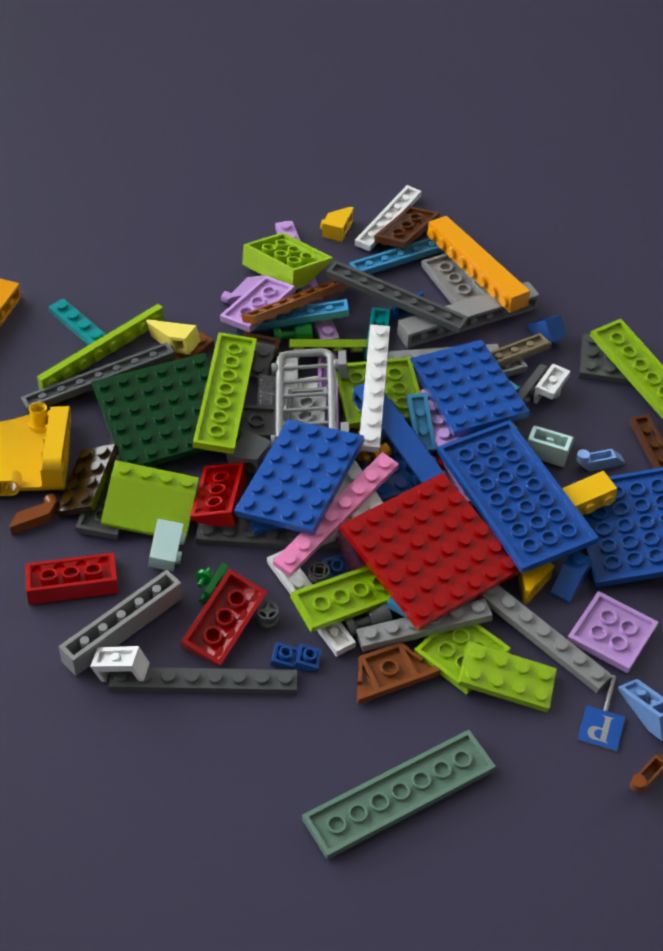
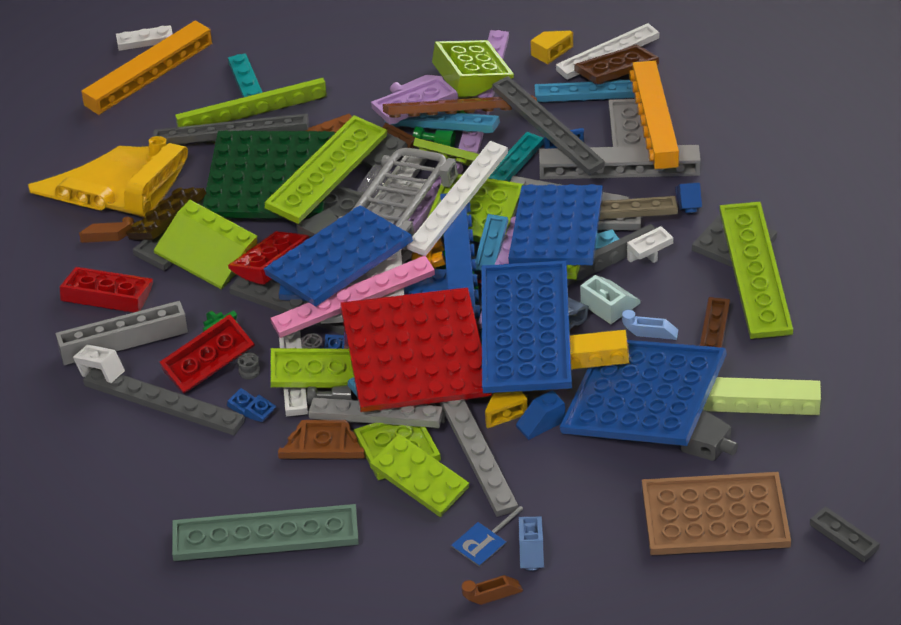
camera: 30 degrees right, 5 degrees down
(165, 545) = (197, 284): light aqua brick -> none
(181, 337) = (321, 111): light yellow slope -> none
(612, 631) = (546, 471): lavender plate -> none

